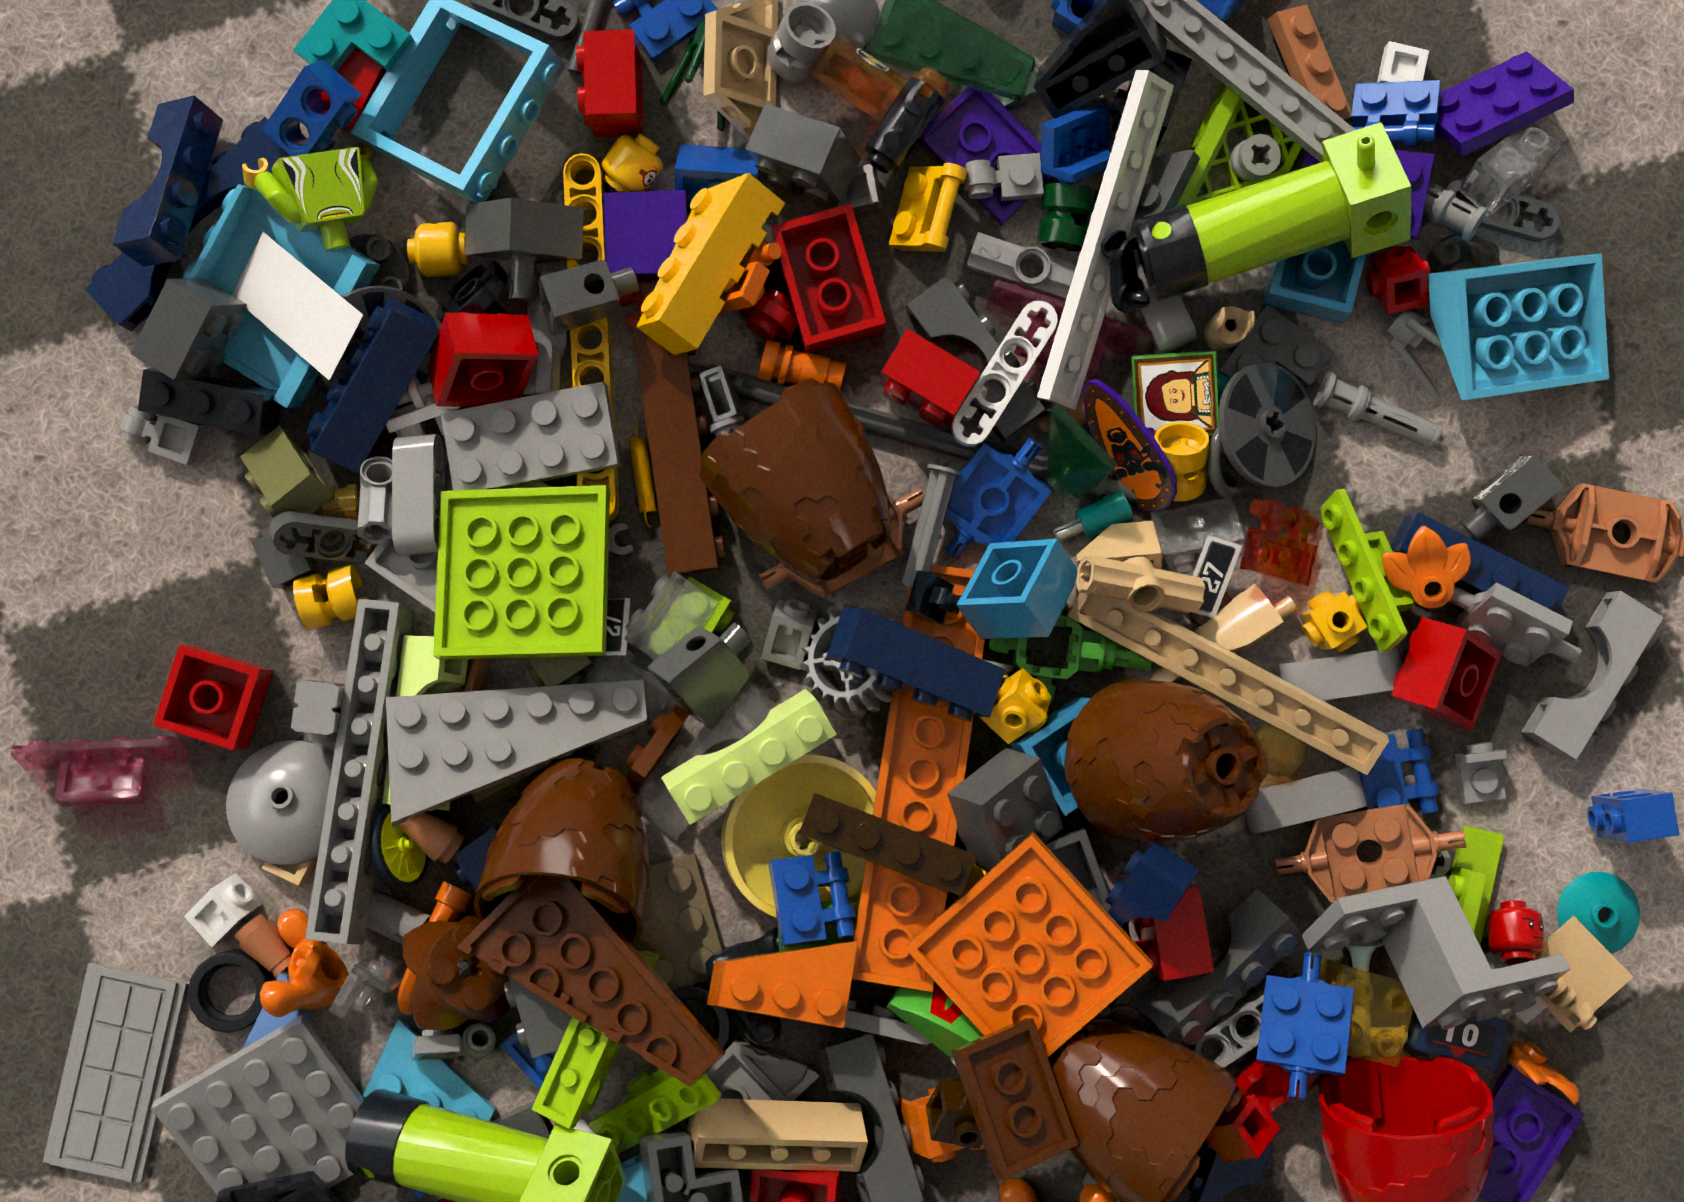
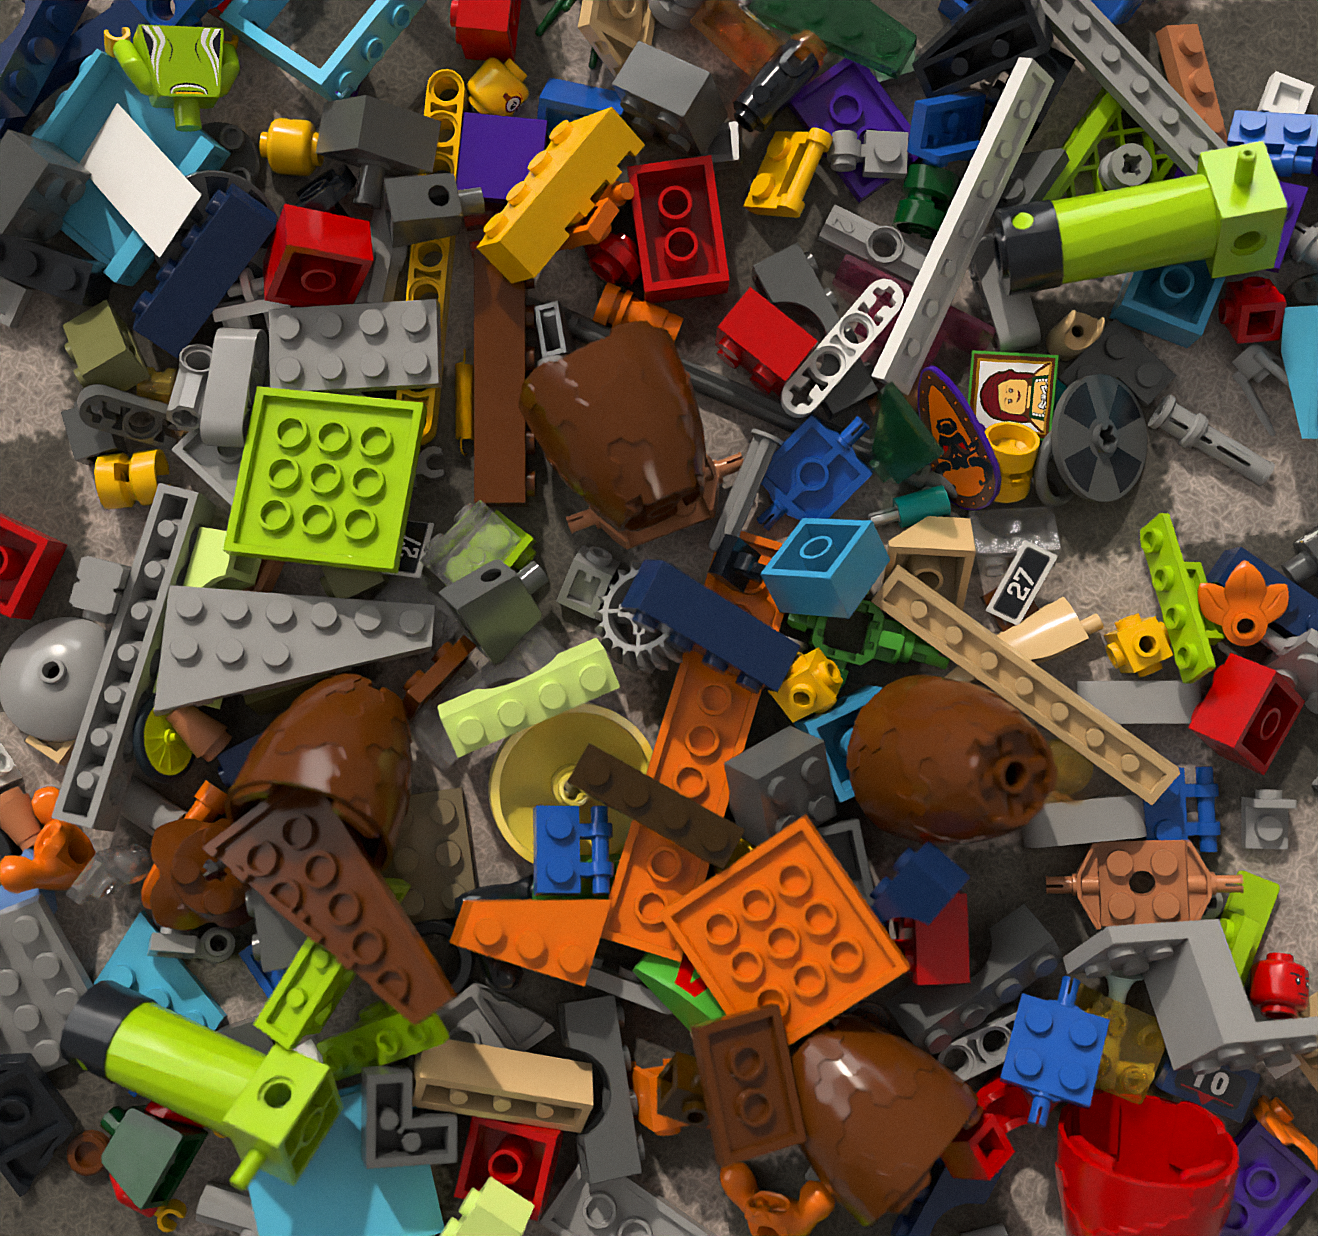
camera: 10 degrees right, 0 degrees up
(1125, 284) = (976, 277): black piece -> none
(1140, 584) = (949, 579): tan piece -> none
(1277, 555) = (1090, 570): clear red plate -> none

